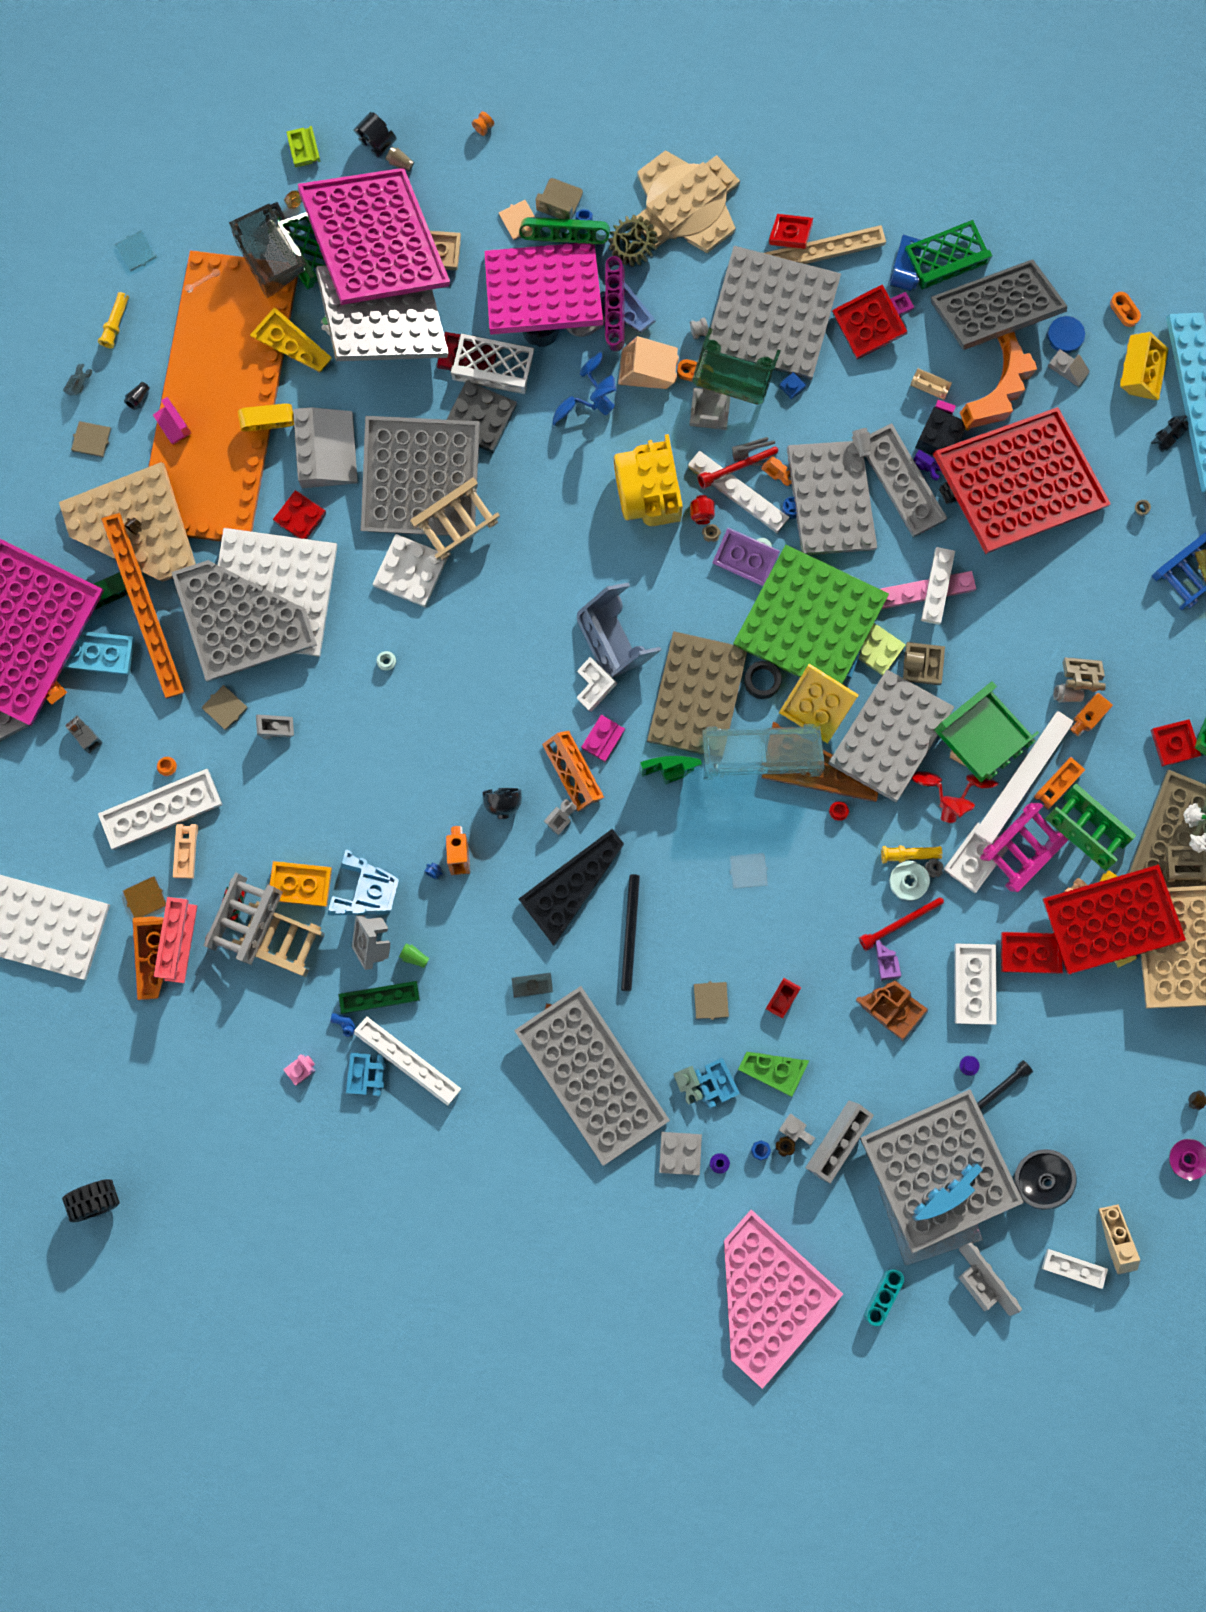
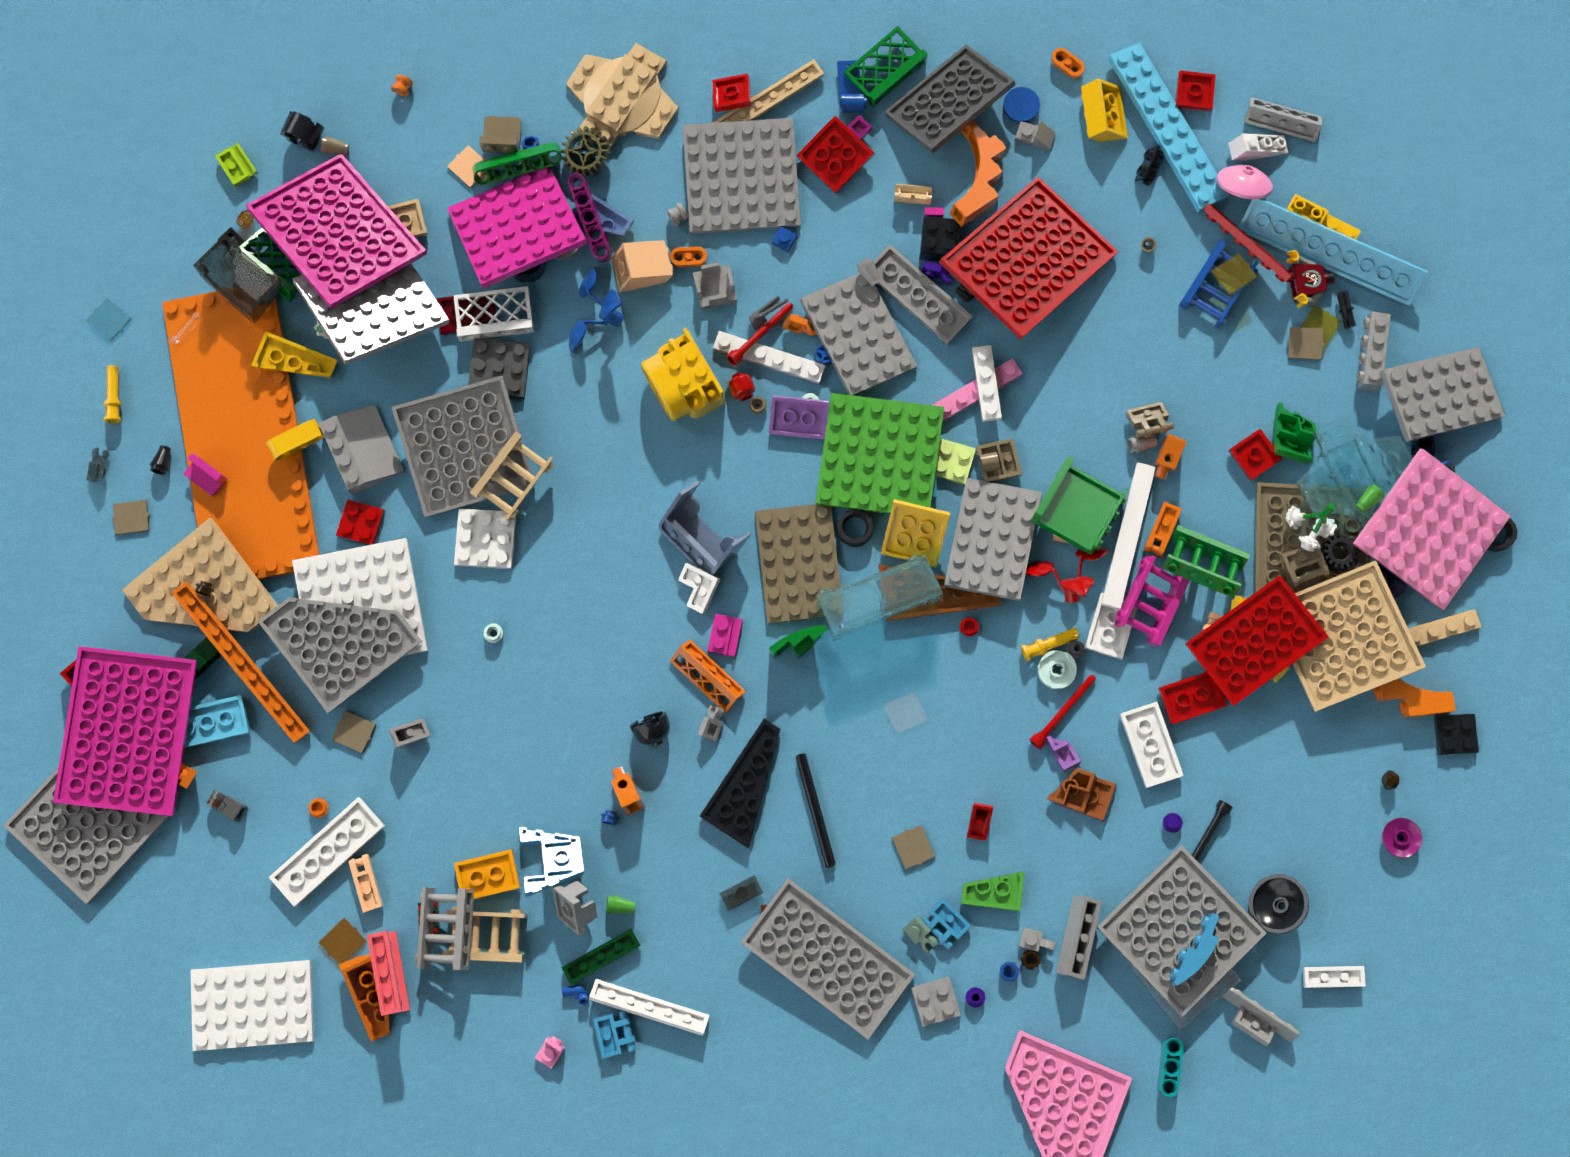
camera: 20 degrees left, 0 degrees up
(733, 375) = (726, 250): clear green windscreen -> none
(1119, 1240) = (1364, 935): tan slope -> none

